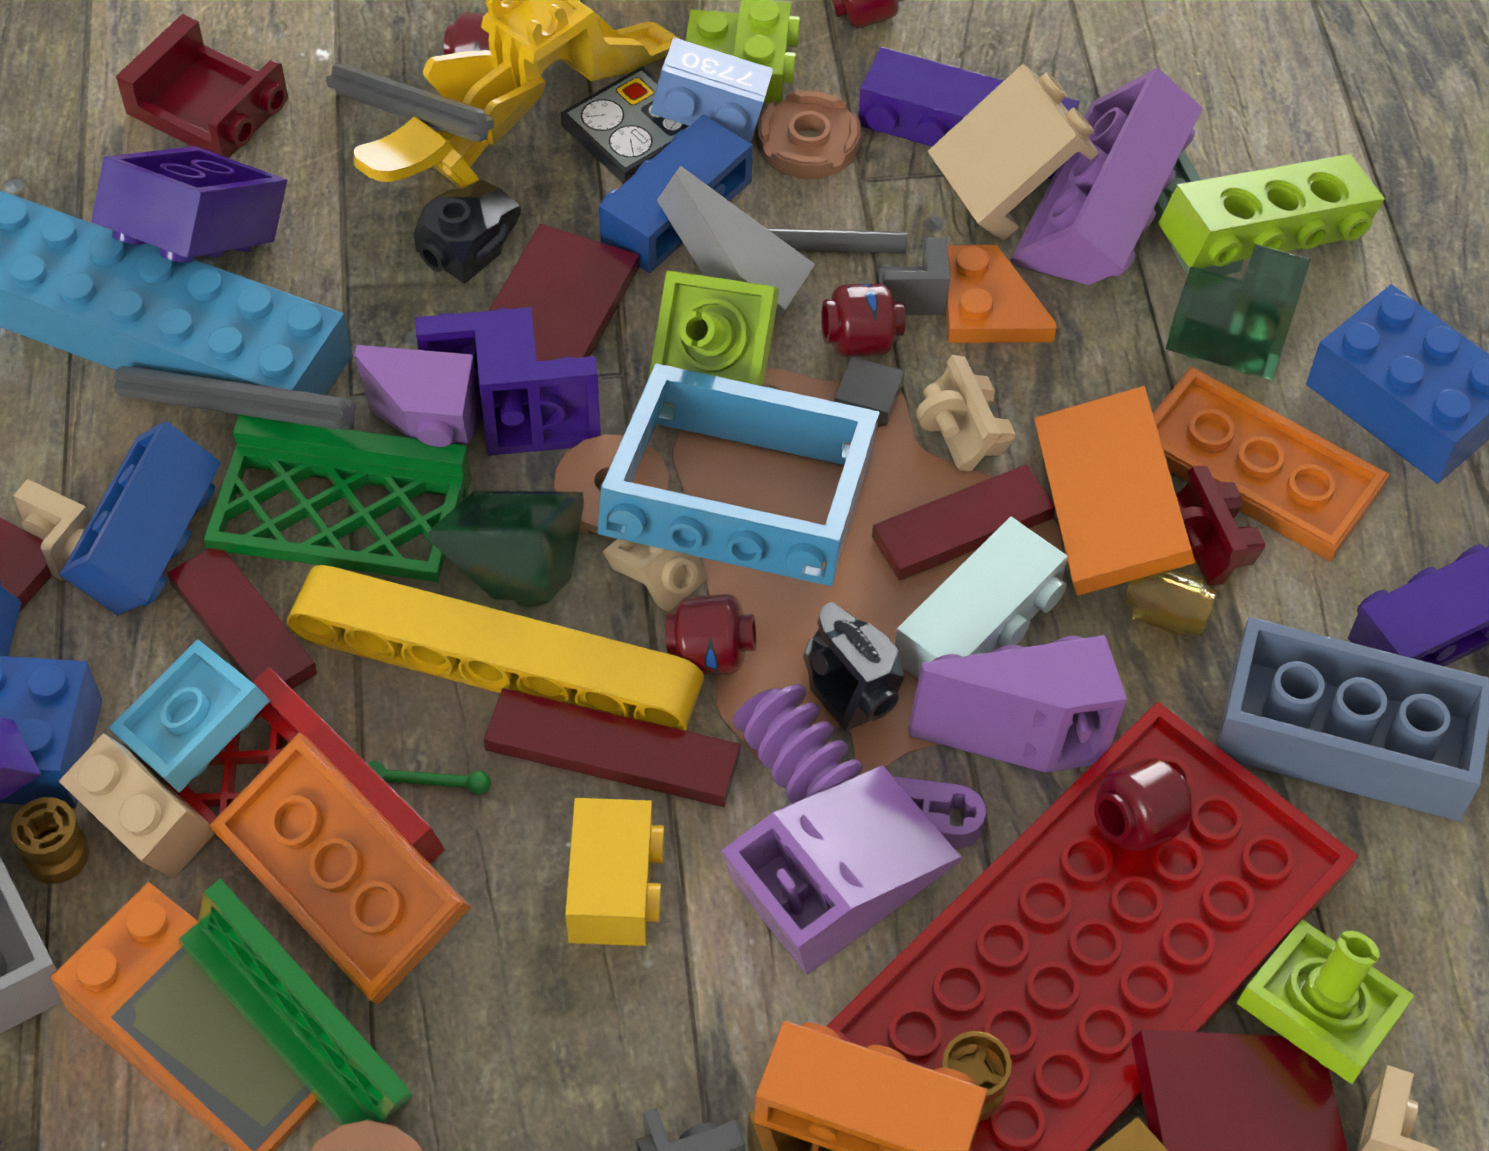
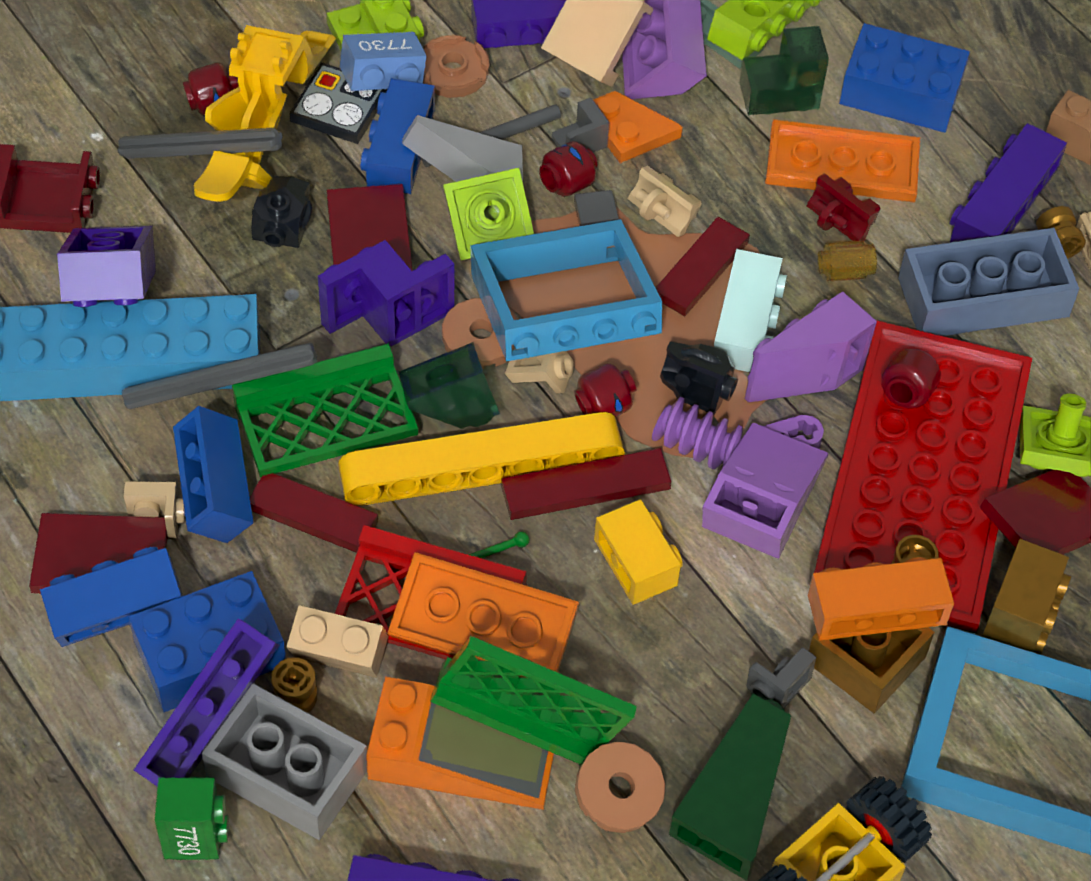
camera: 30 degrees left, 0 degrees up
(189, 715) = (331, 573): medium azure plate -> none
(422, 392) = (341, 323): medium lavender slope -> none
(1112, 491) = (780, 209): orange tile -> none

